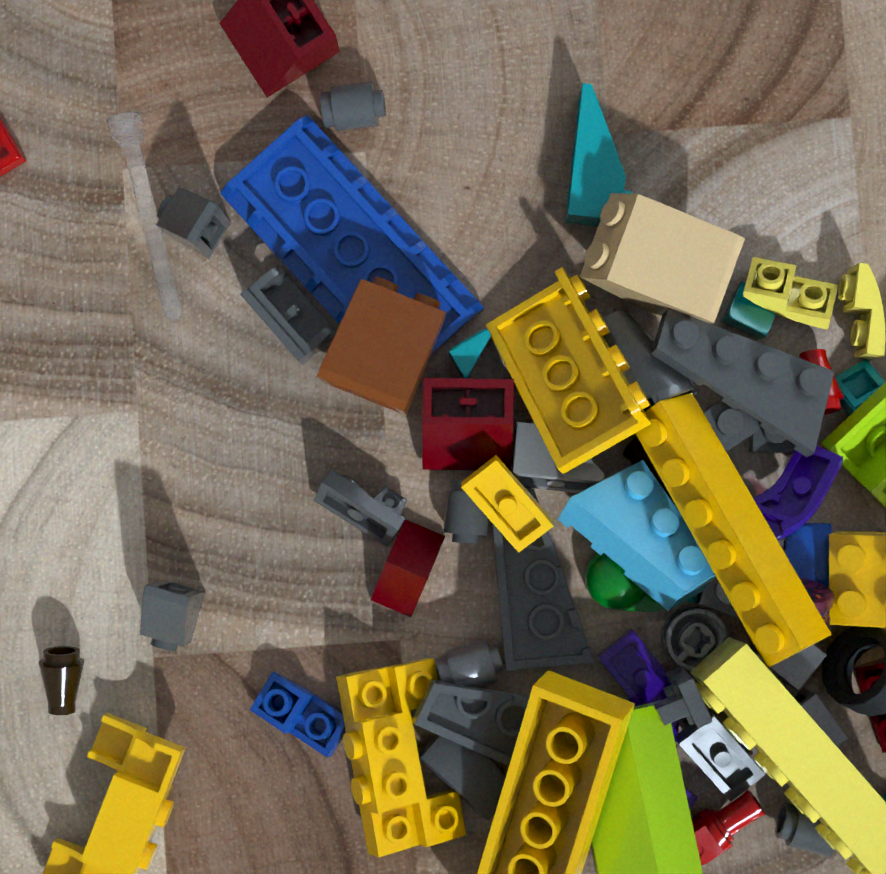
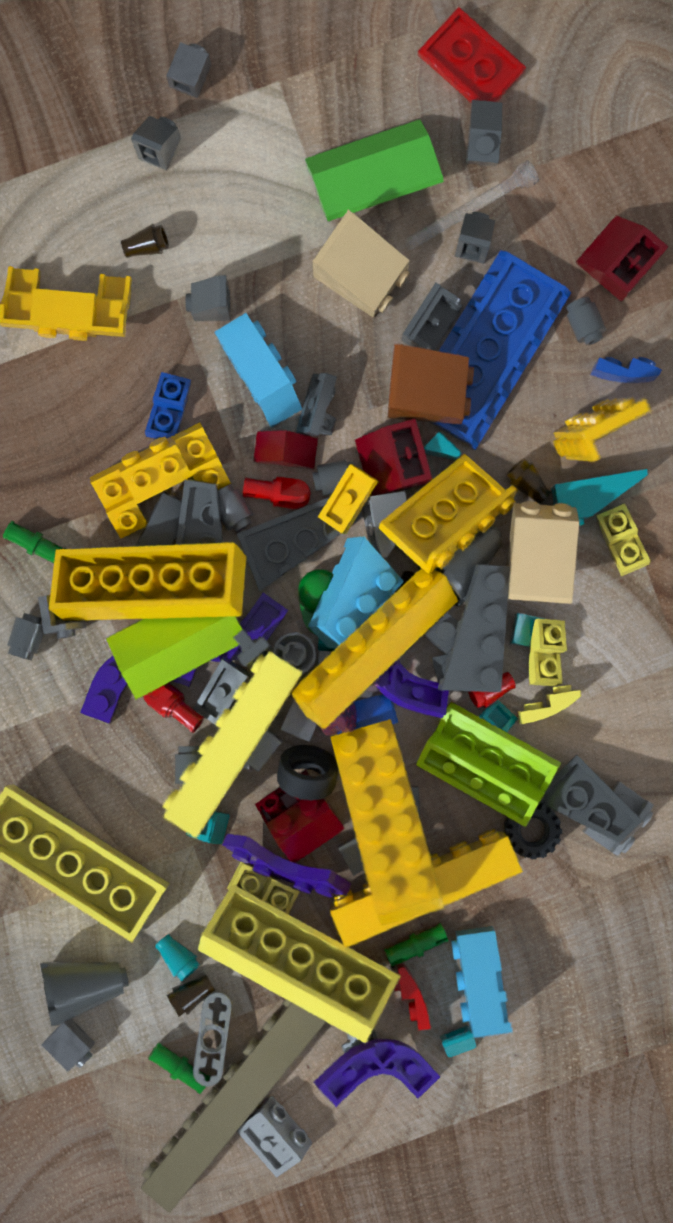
camera: 75 degrees right, 0 degrees up
(52, 166) = (484, 133): none -> dark grey slope
(57, 332) = (374, 170): none -> bright green slope
(185, 390) = (360, 265): none -> tan slope
(286, 573) = (260, 368): none -> medium azure wedge
(440, 62) = (637, 370): none -> blue slope
(465, 592) = (281, 491): none -> red arm
(511, 130) = (577, 437): none -> yellow bracket
(547, 249) = (528, 481): none -> dark brown cone
(664, 146) = (623, 539): none -> light yellow slope

